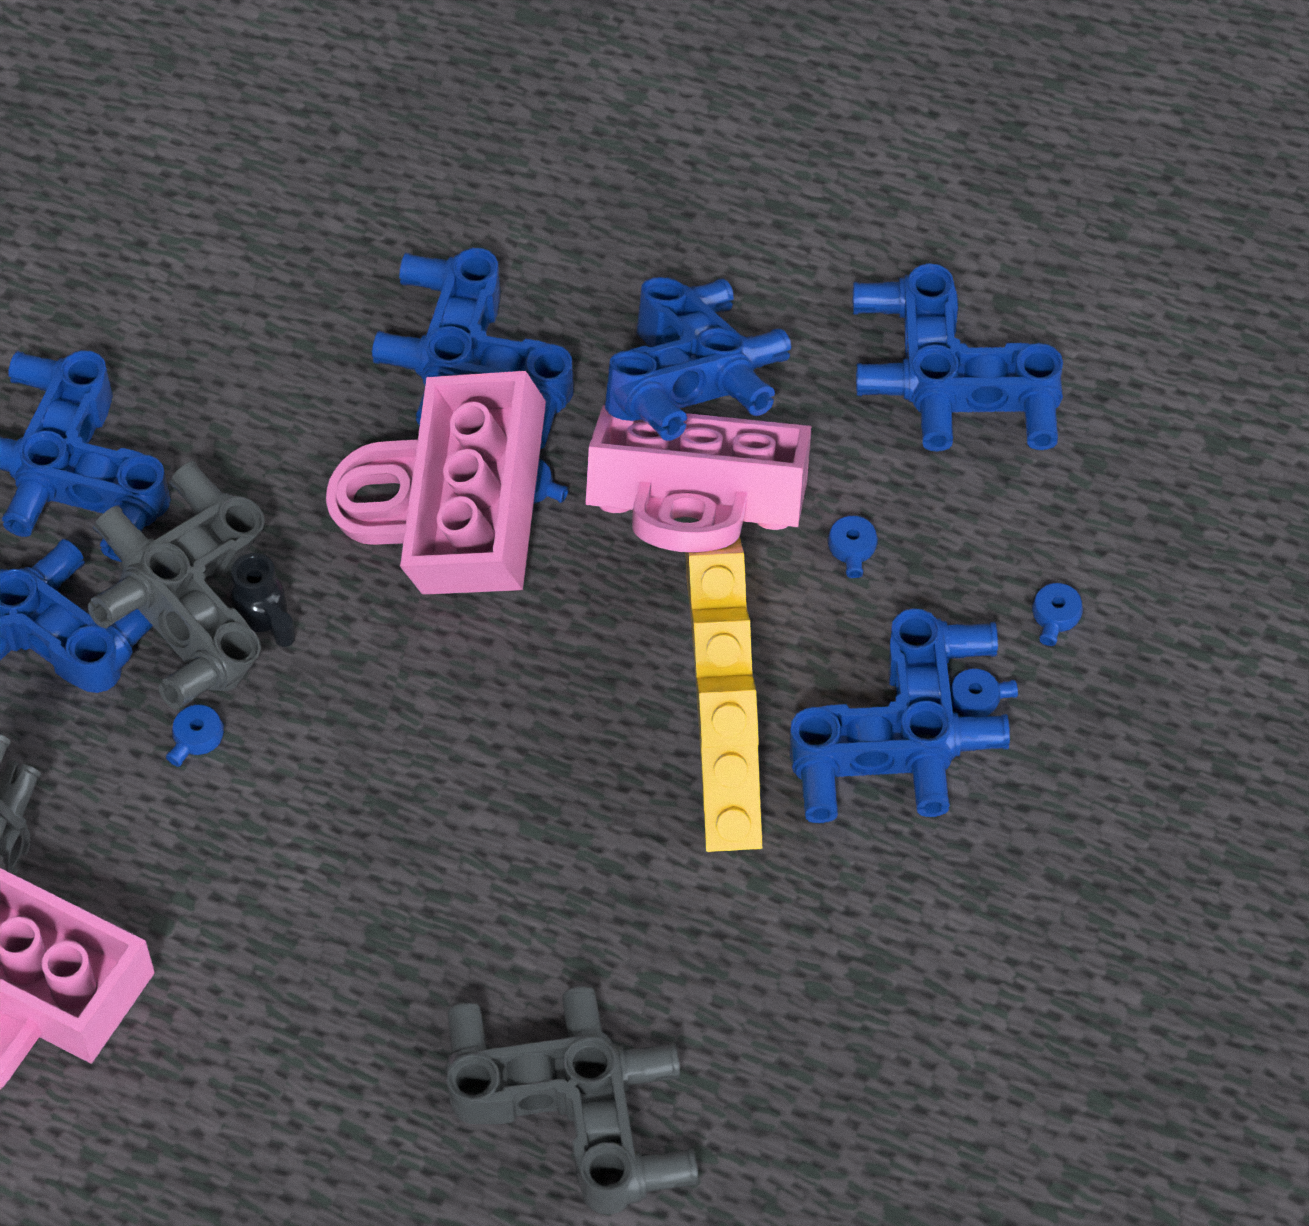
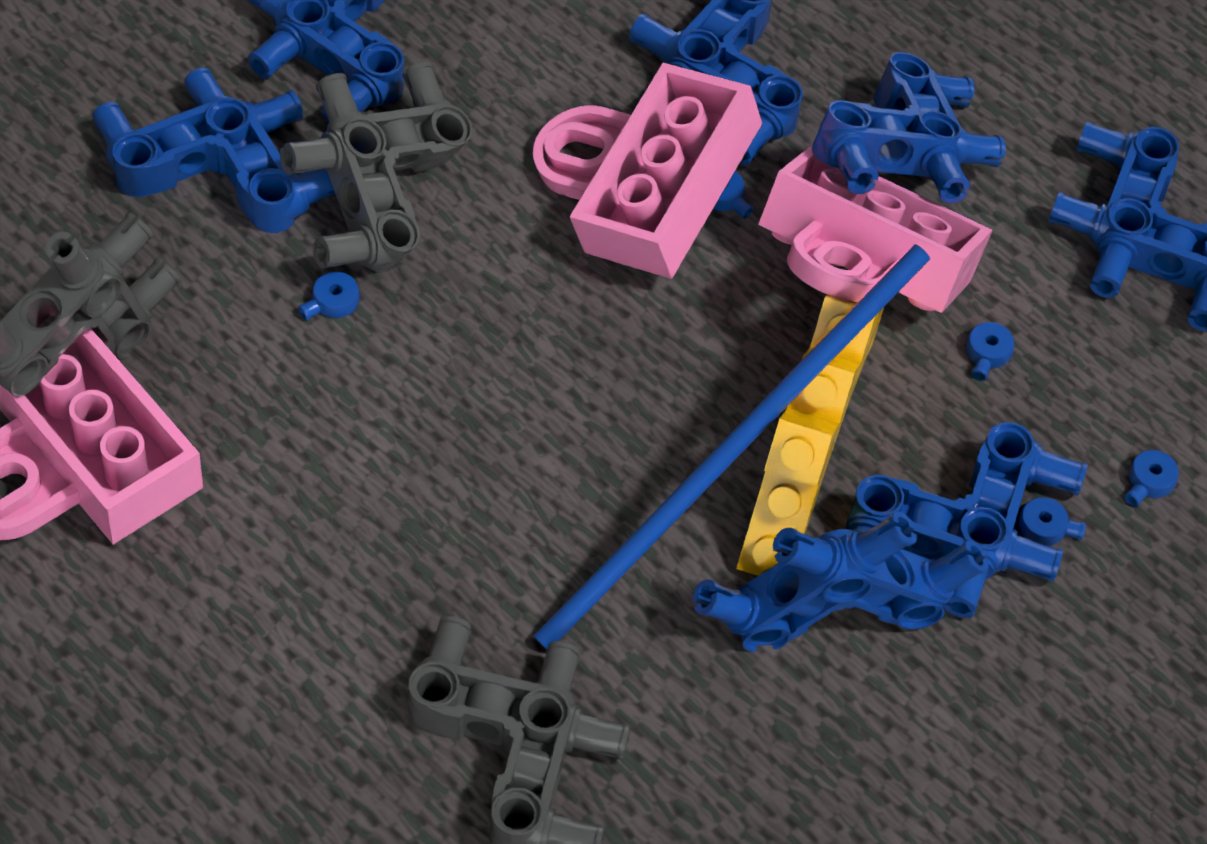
camera: 15 degrees right, 0 degrees up
(261, 597) = (439, 201): black piece -> none
(661, 738) = (732, 446): none -> blue piece
(809, 821) = (839, 573): none -> blue pin

